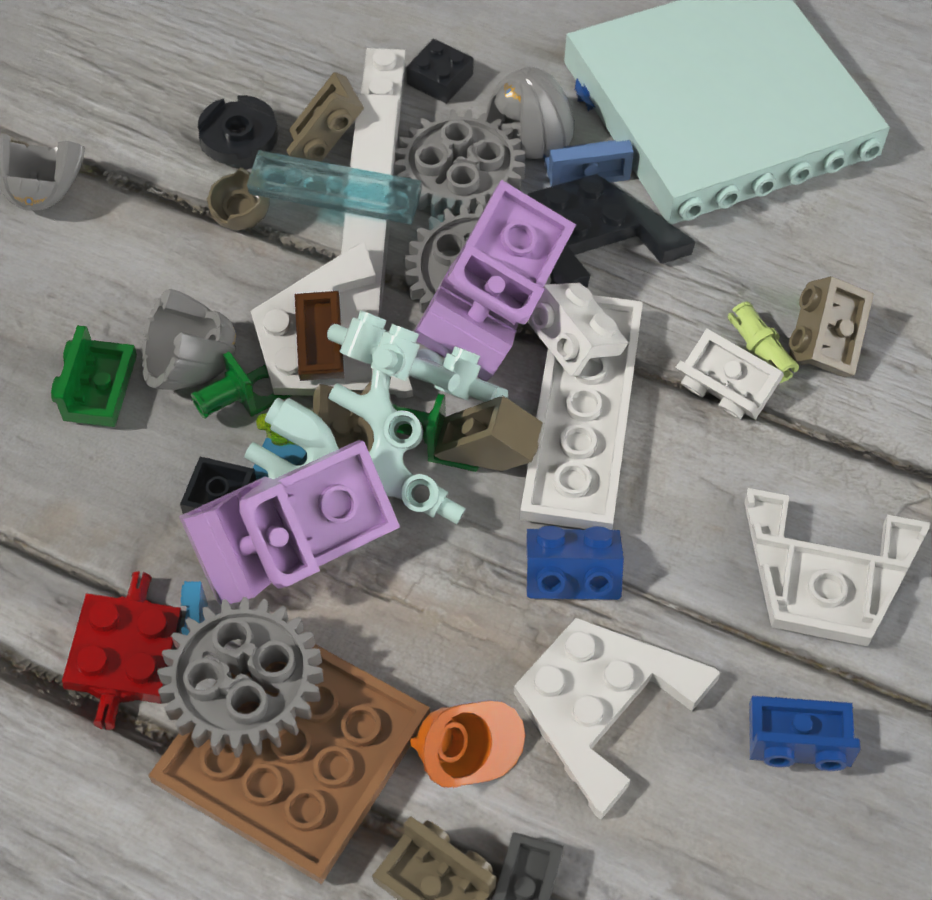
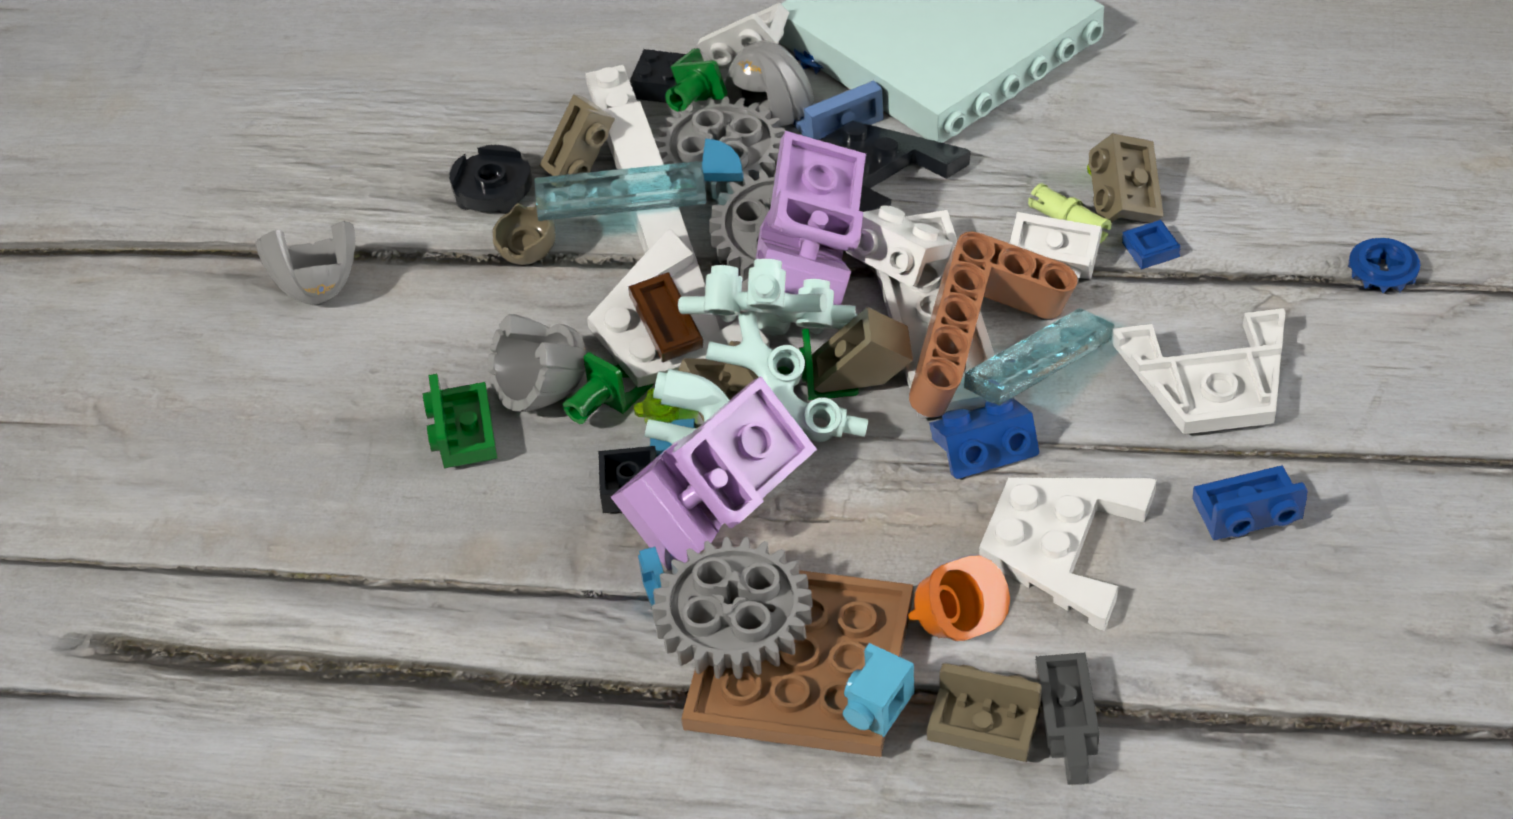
camera: 15 degrees left, 10 degrees down
(120, 649) = (601, 633): red plate -> none
(334, 824) = (878, 690): none -> medium azure brick
(444, 184) = (720, 162): none -> dark azure tile
(463, 88) = (695, 81): none -> green bracket
(543, 51) = (730, 40): none -> white bracket
(601, 419) = (975, 270): none -> nougat beam
(658, 496) = (1038, 356): none -> clear light blue plate
(830, 401) = (1151, 244): none -> blue tile

